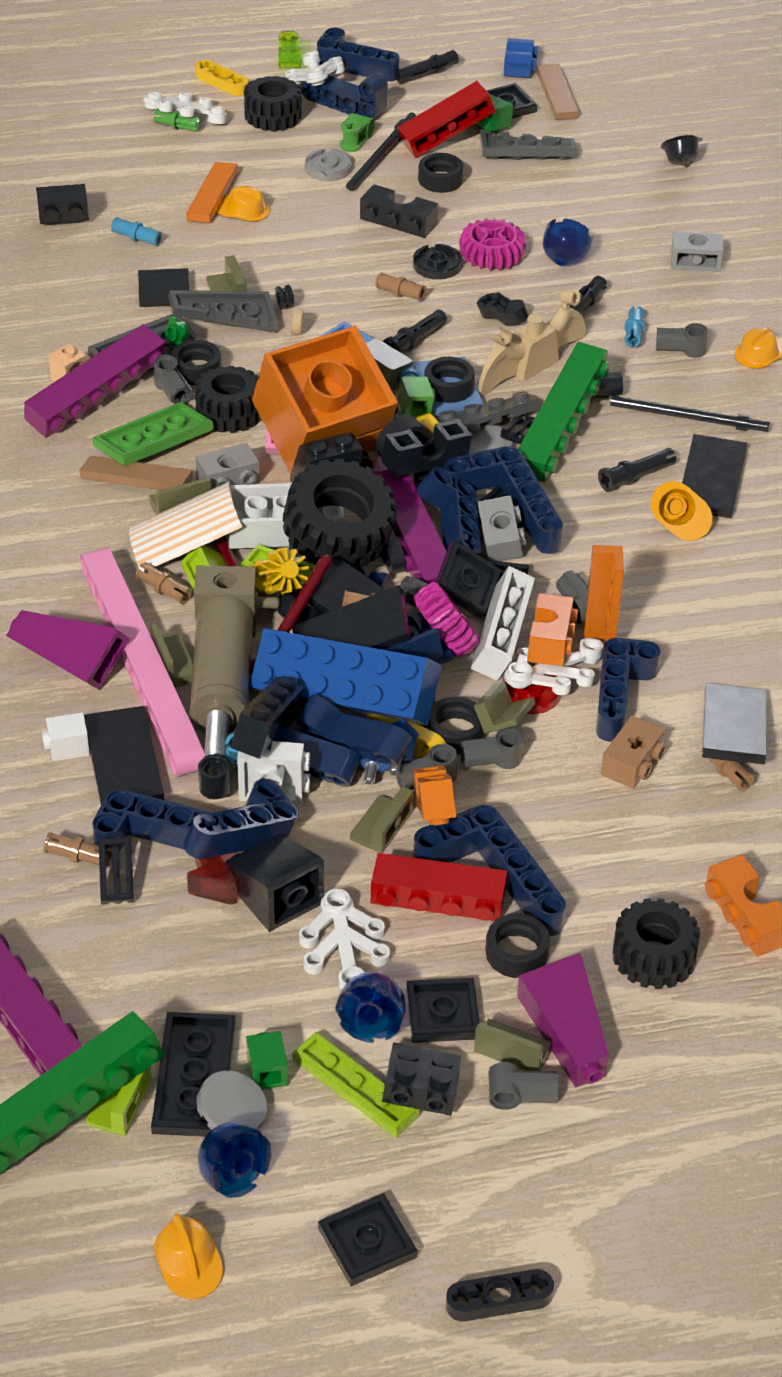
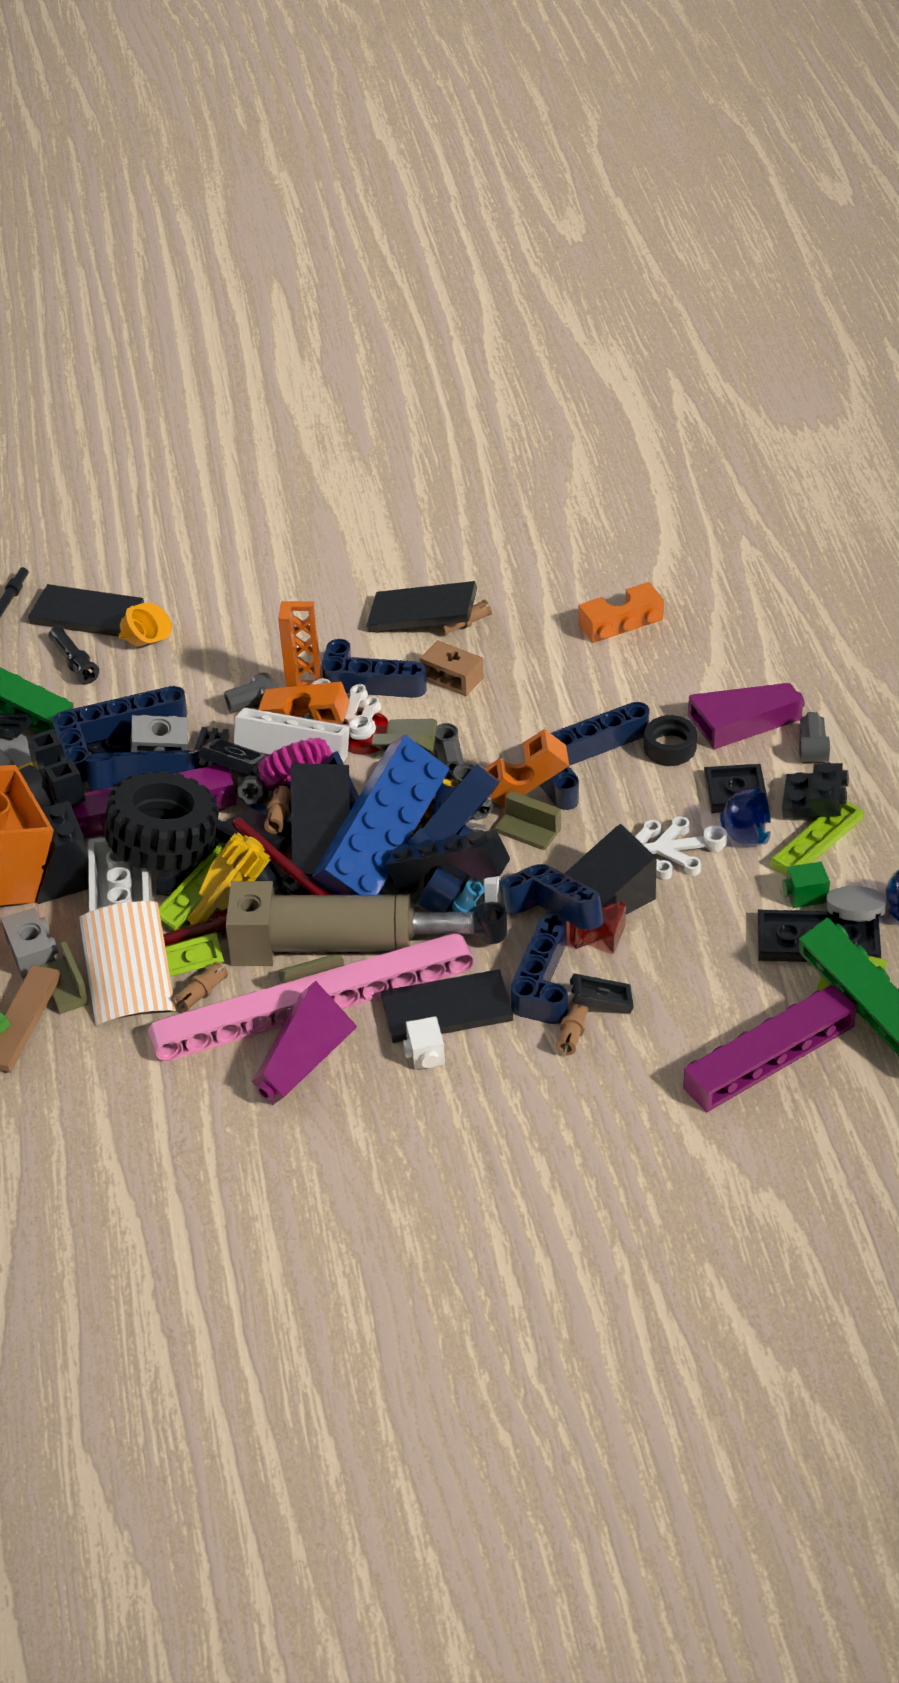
camera: 85 degrees left, 0 degrees up
(438, 887) = (611, 784): red brick -> none
(511, 1045) = (772, 745): olive panel -> none
(654, 963) = (668, 659): black tyre -> none

